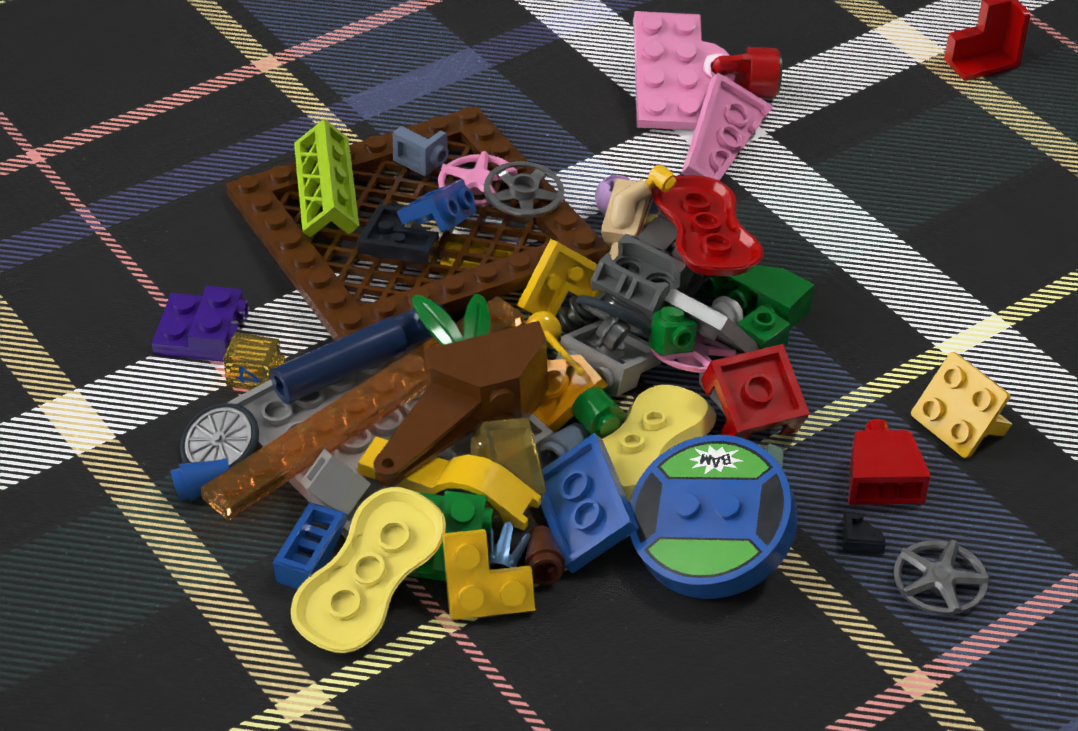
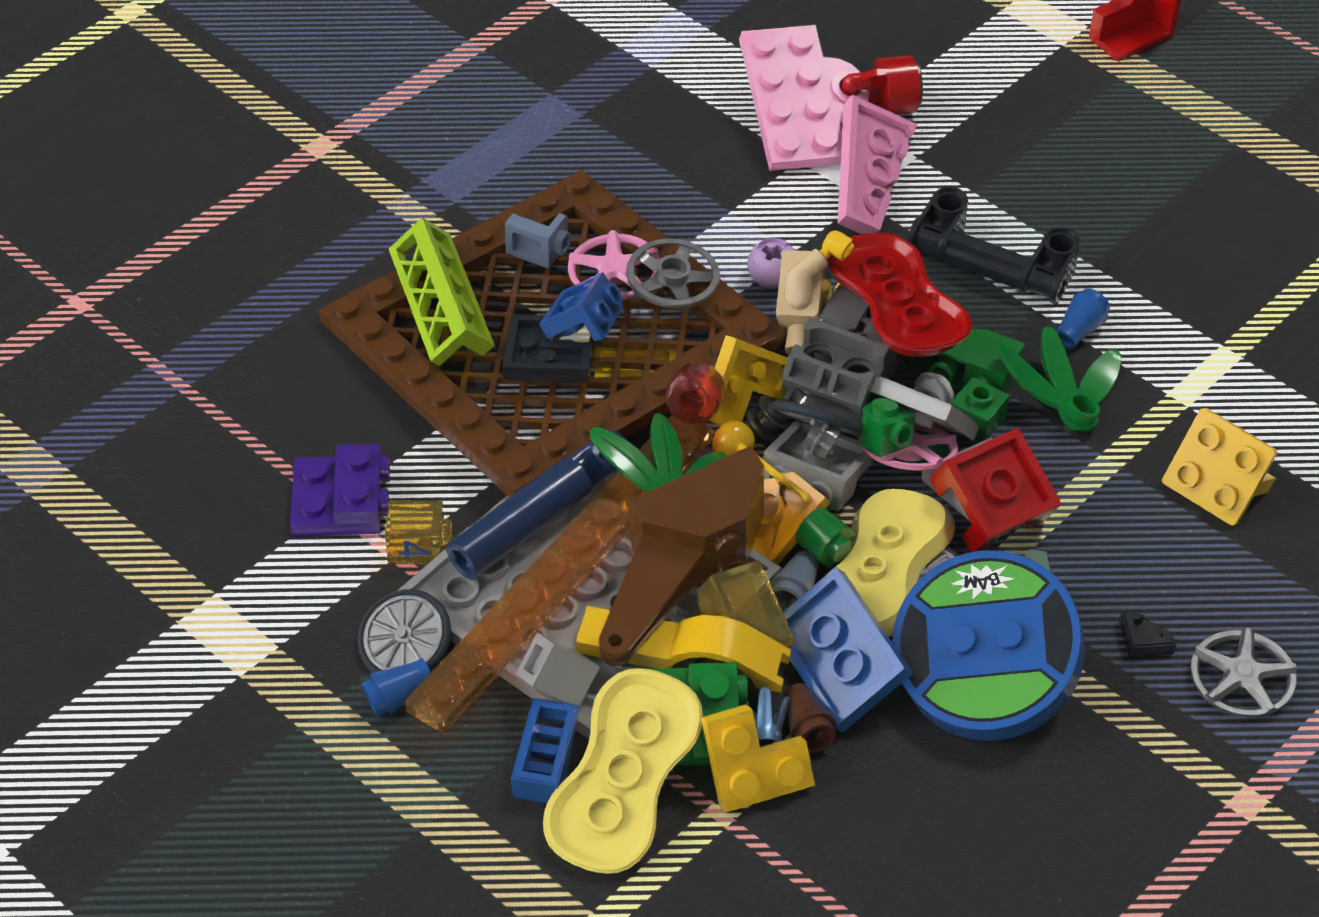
camera: 10 degrees left, 5 degrees up
(513, 281) = (695, 393): none -> clear red head
(772, 191) = (941, 233): none -> black piece
(847, 342) = (1075, 405): none -> green plant
(874, 273) = (1083, 316): none -> blue cone
(886, 467) = (1154, 551): red torso -> none

